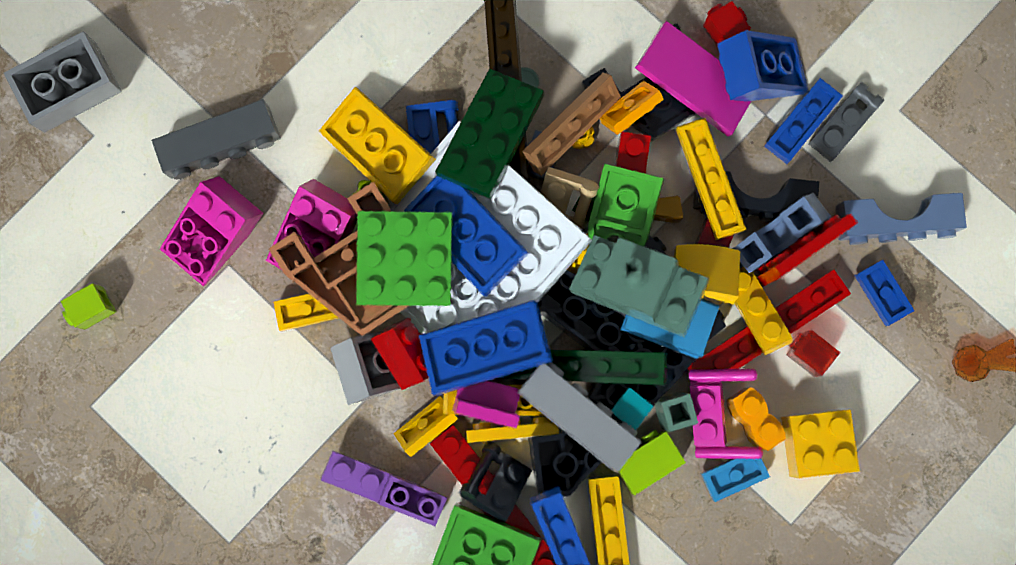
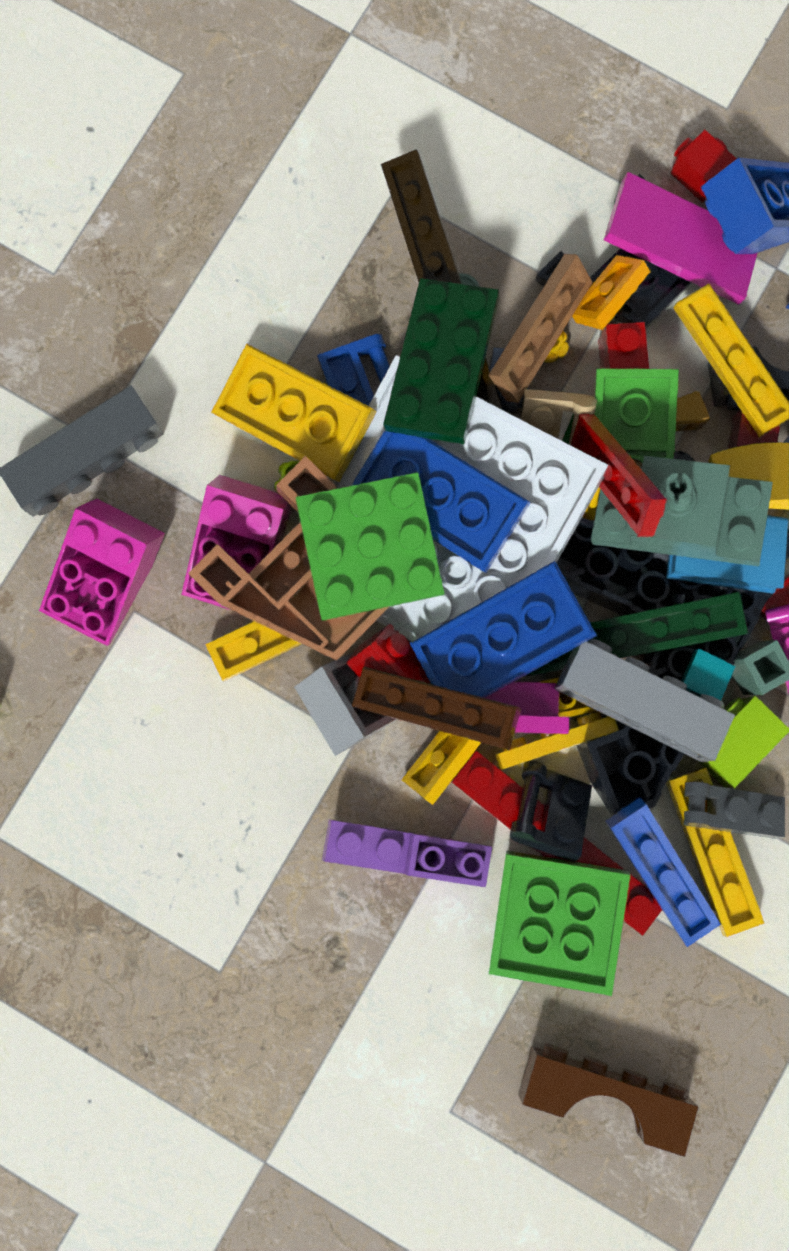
camera: 15 degrees left, 0 degrees up
(424, 387) = (437, 707): none -> reddish brown tile
(597, 254) = (623, 480): none -> red plate
(631, 512) = (735, 810): none -> dark grey plate

